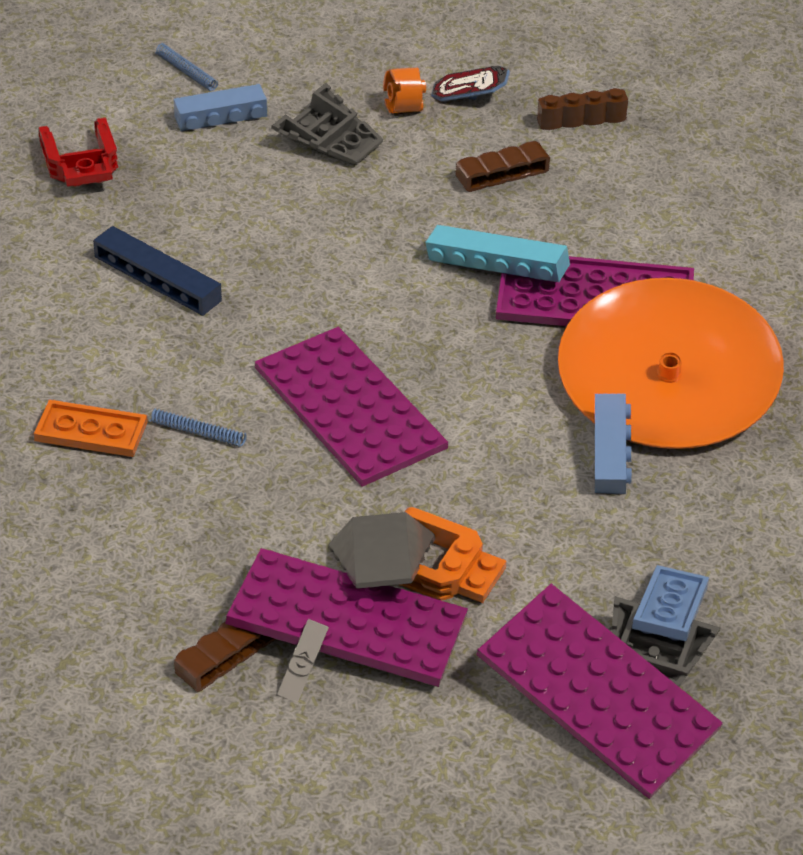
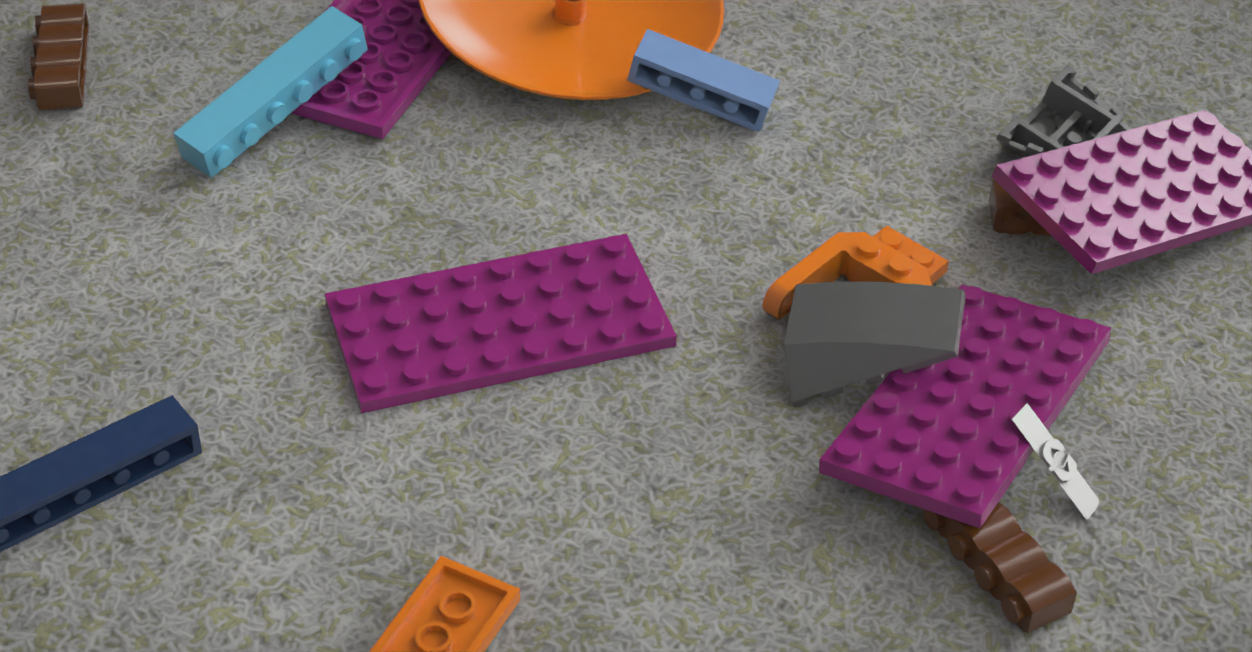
camera: 75 degrees left, 0 degrees up
(198, 426) = (515, 474): medium blue piece -> none
(670, 603) = (1001, 97): medium blue plate -> none

